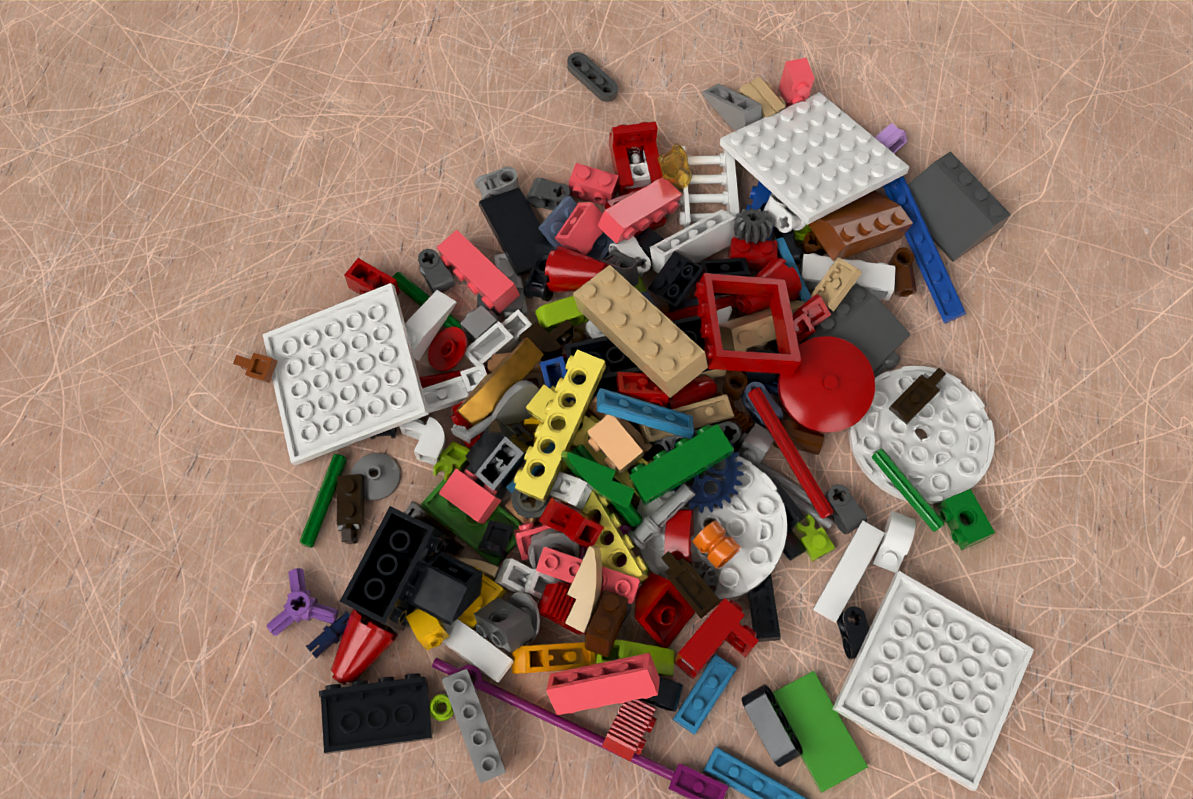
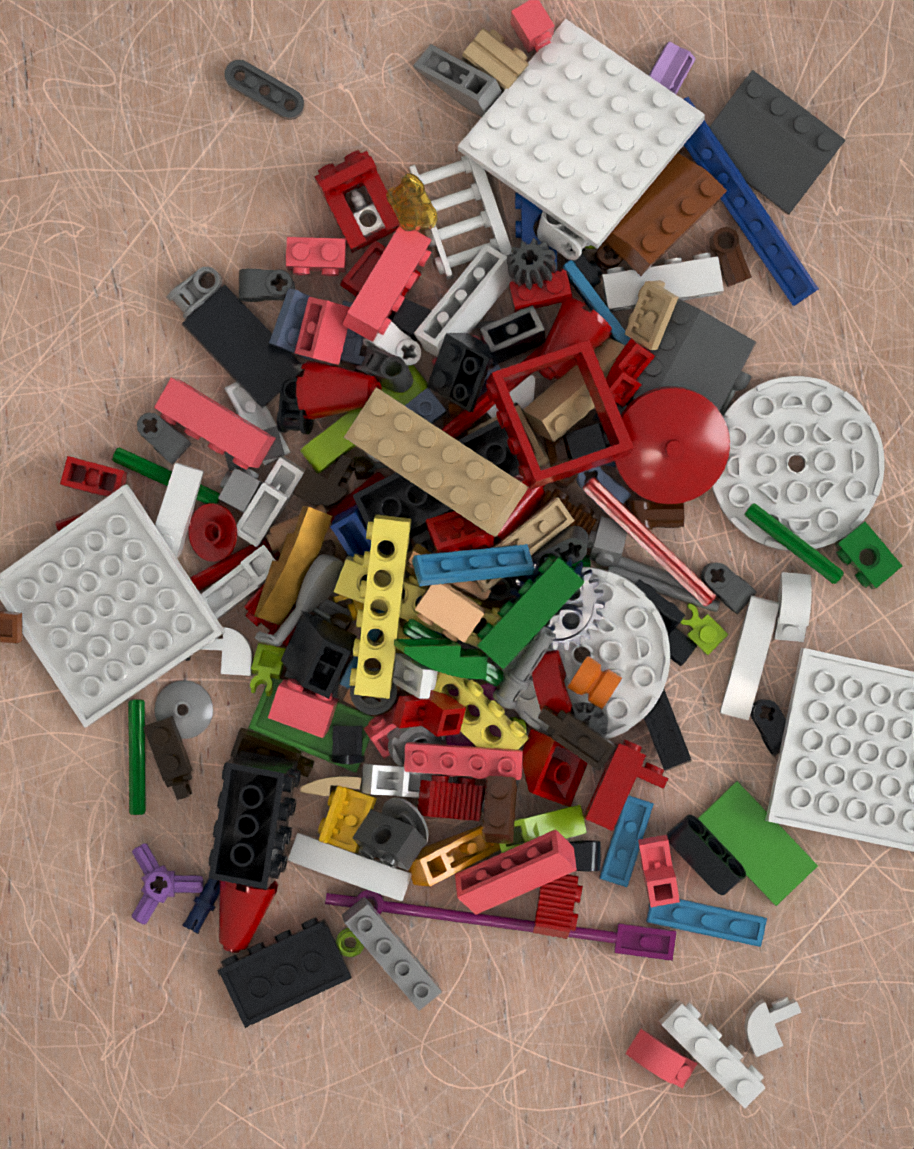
camera: 15 degrees left, 20 degrees up
(427, 629) = (308, 868): yellow brick -> none
(446, 588) = (316, 826): black slope -> none
(586, 590) = (468, 784): tan slope -> none
(726, 725) = (658, 871): none -> coral brick
(917, 396) = (781, 423): dark brown hinge -> none

